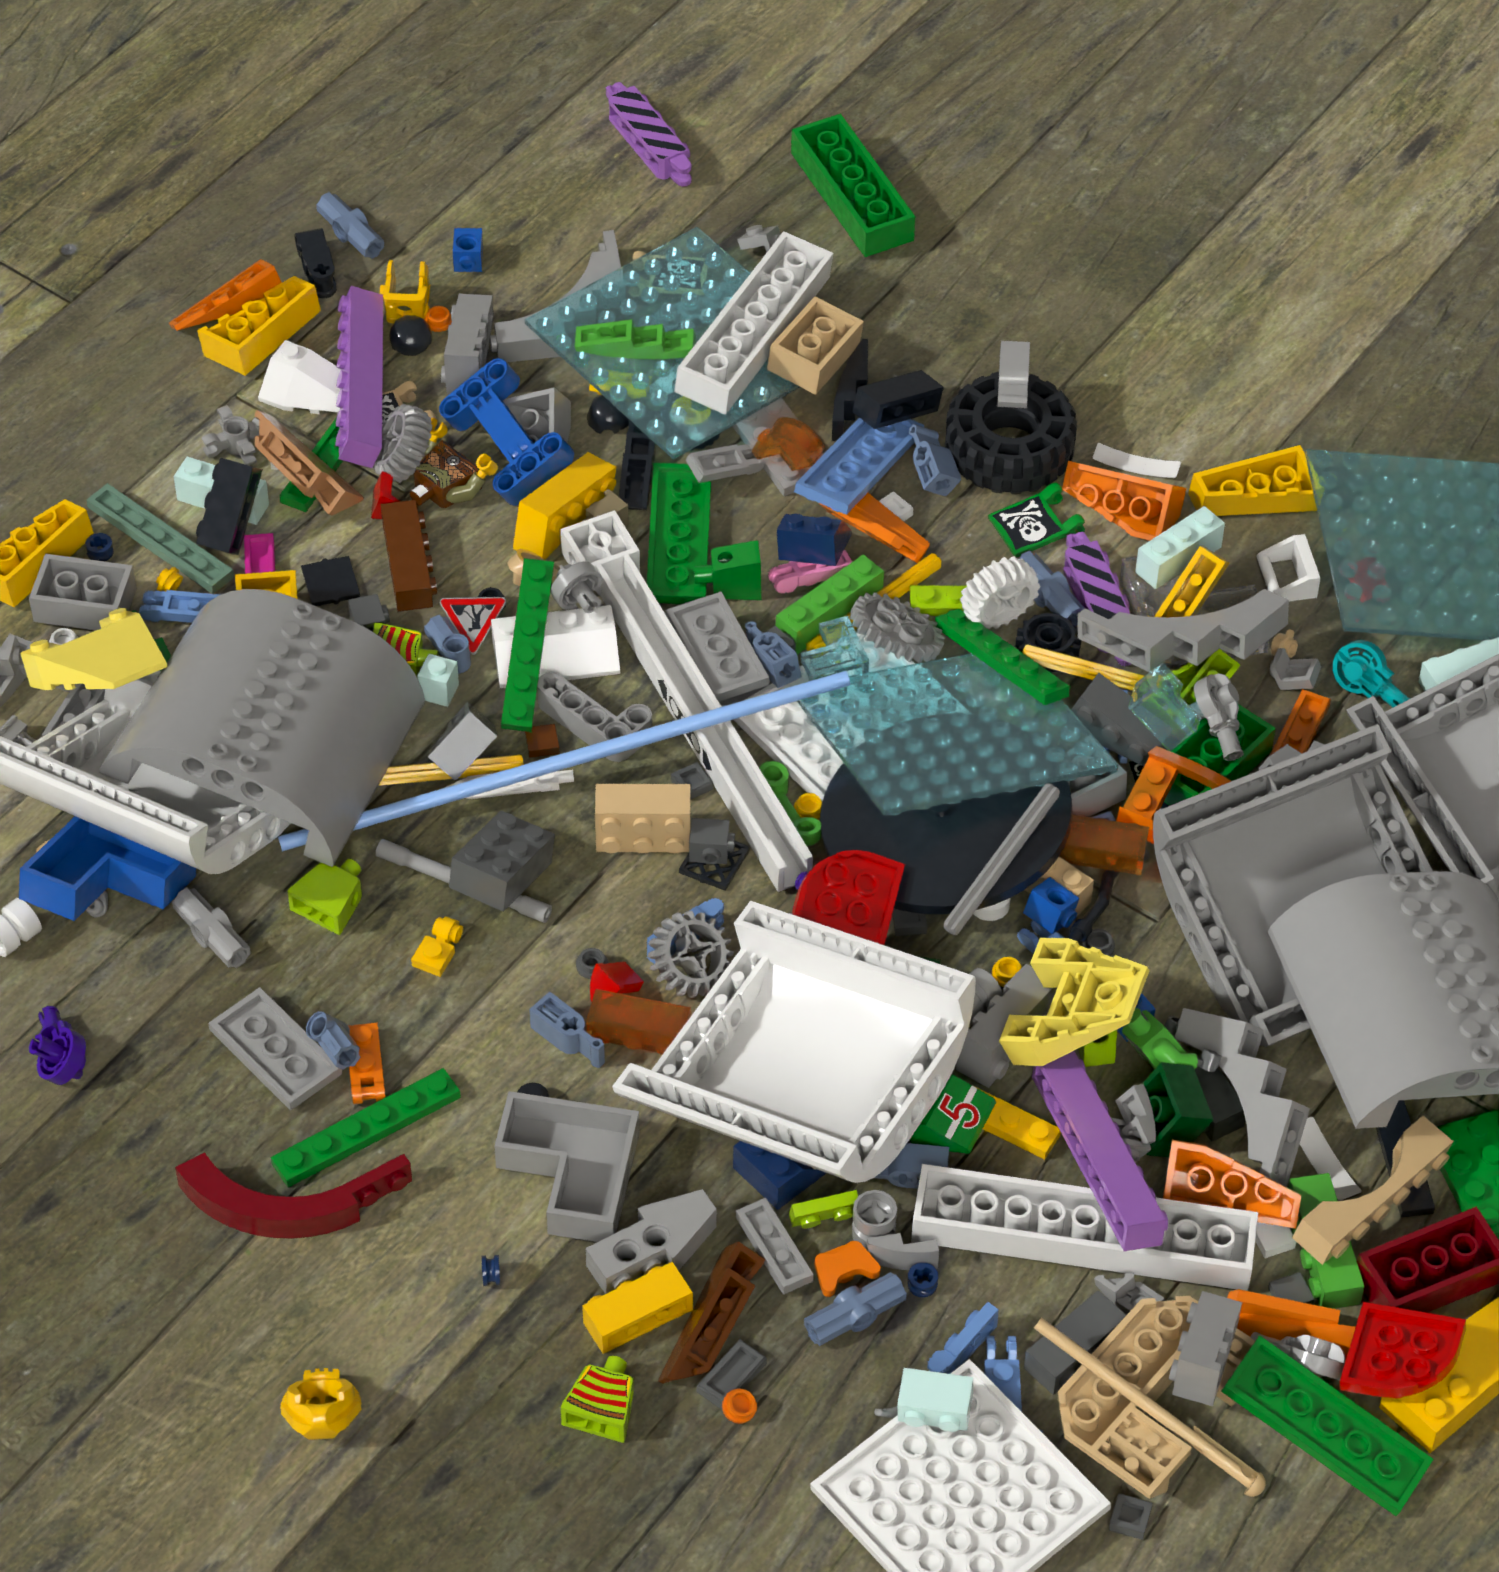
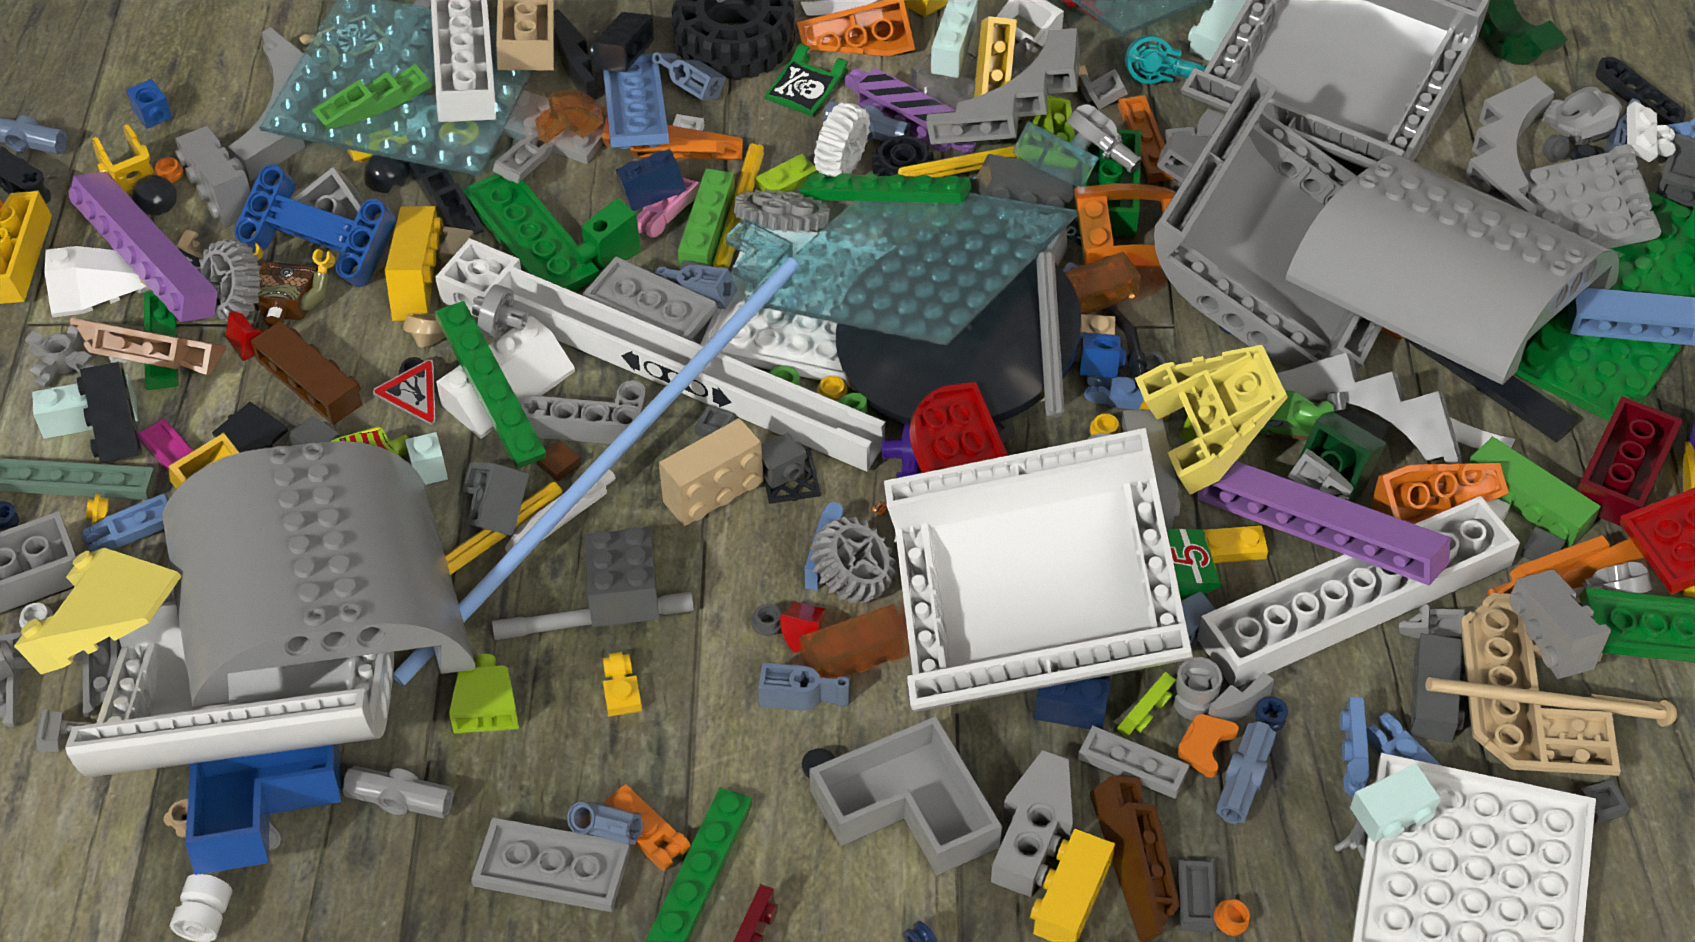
camera: 35 degrees left, 0 degrees up
(449, 641) = (404, 421): sand blue piece -> none
(1334, 1223) = (1547, 472): tan arch -> none

